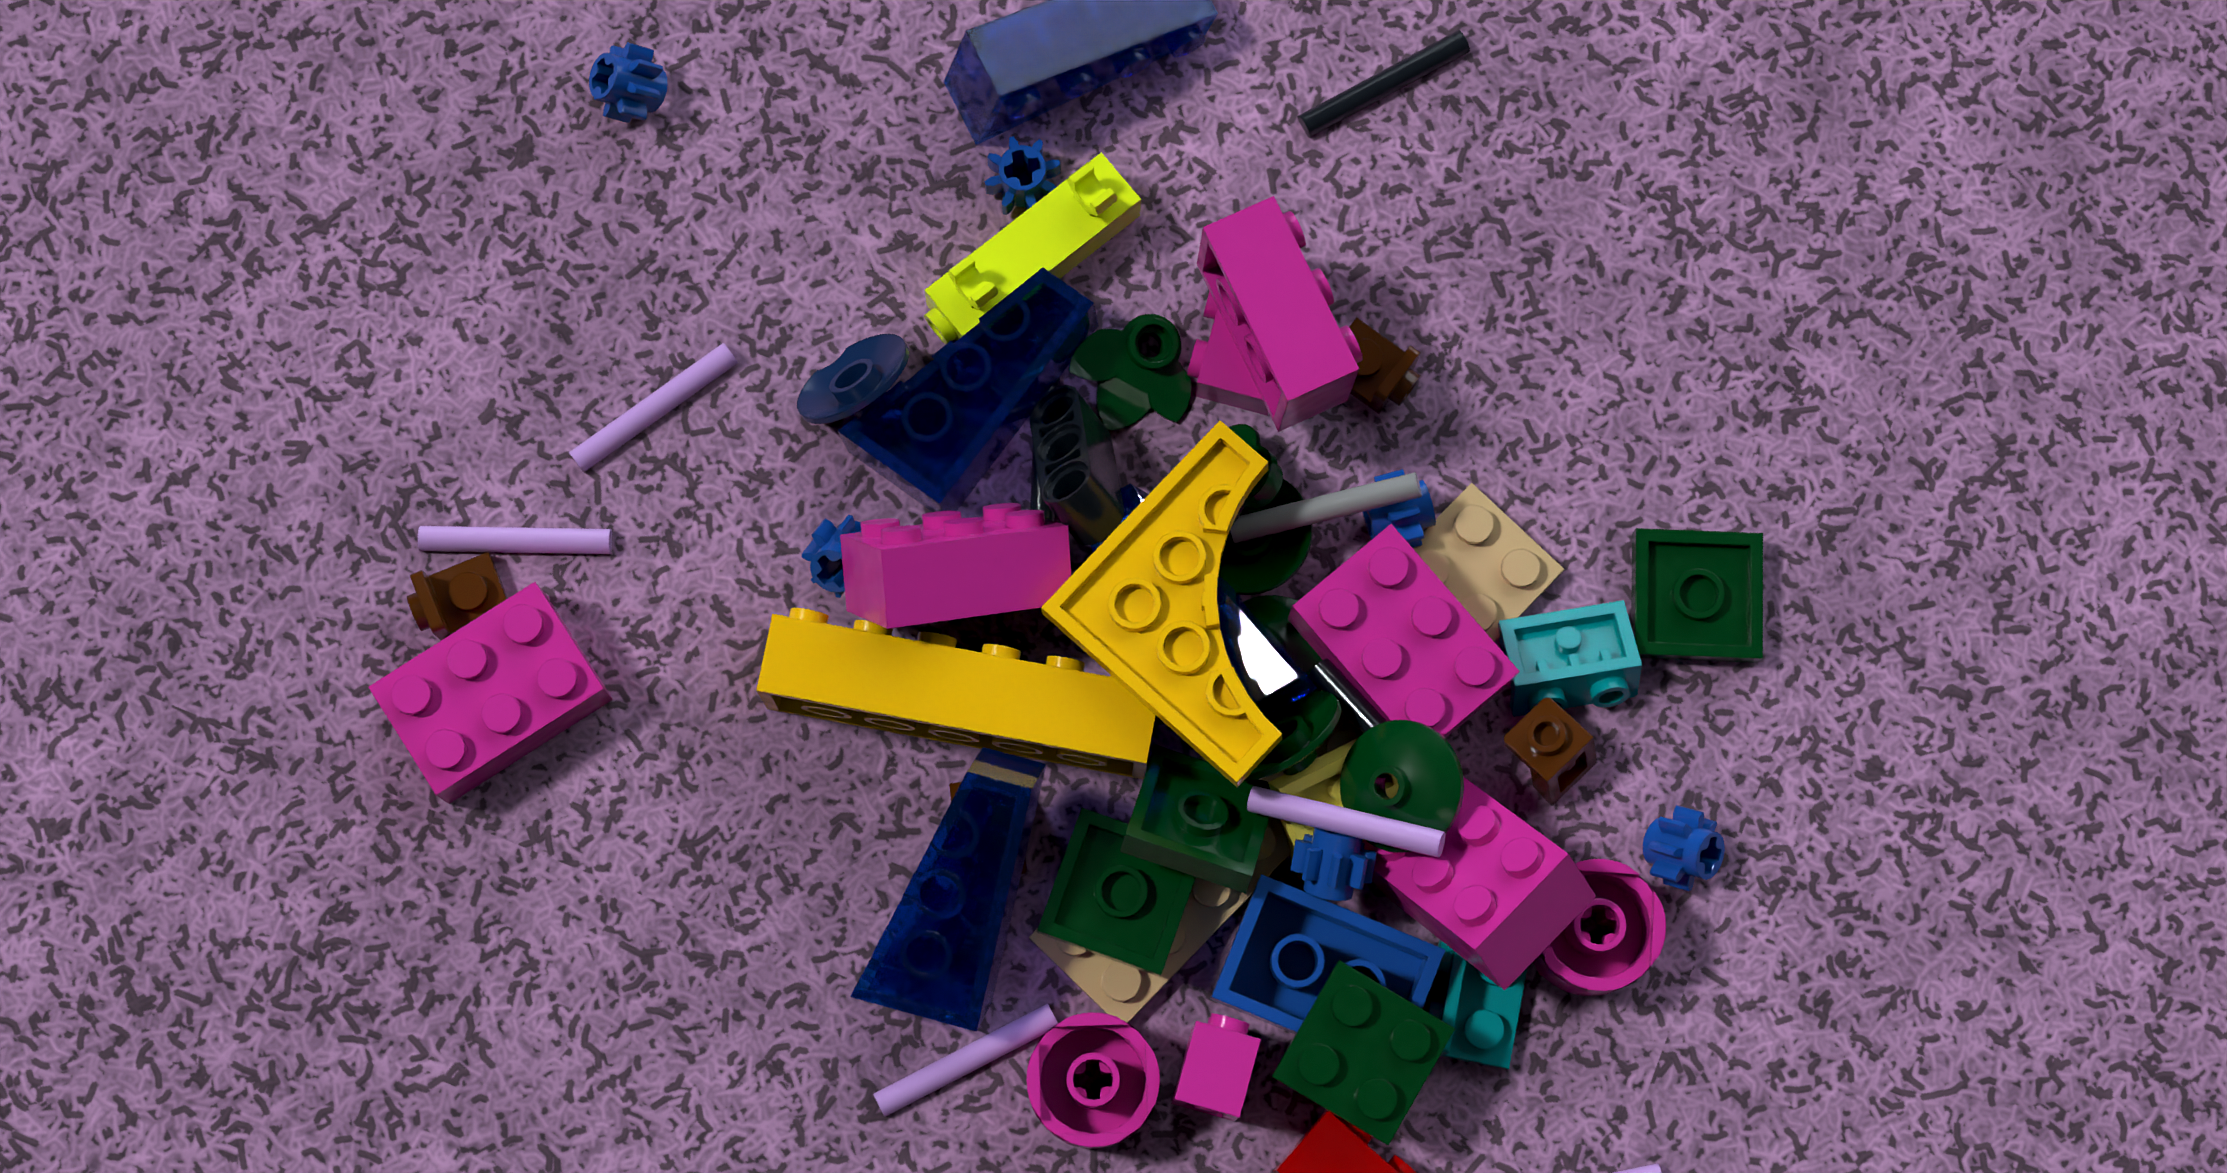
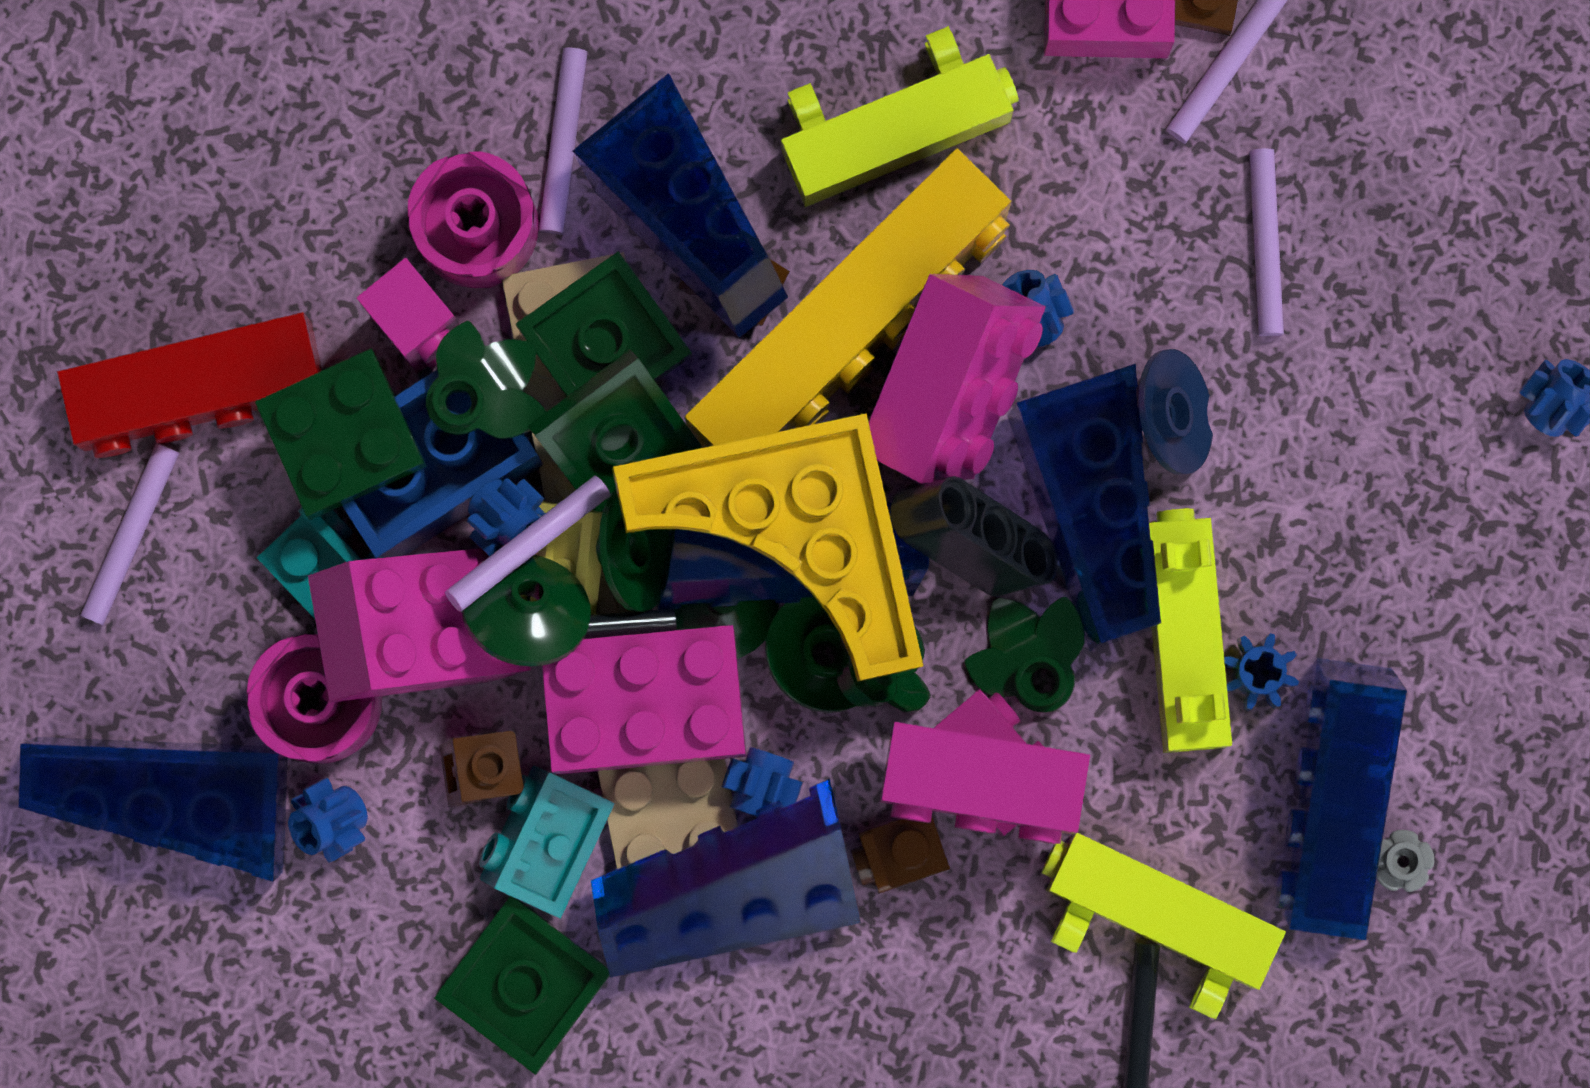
camera: 130 degrees right, 5 degrees up
(761, 772) = (898, 127): none -> neon yellow brick
(1226, 954) = (492, 380): none -> dark green plate
(1270, 116) = (1163, 911): none -> neon yellow brick
(1326, 507) = (800, 720): light grey bar -> none
(1505, 473) = (730, 889): none -> clear blue wedge
(1765, 1016) = (166, 794): none -> clear blue wedge

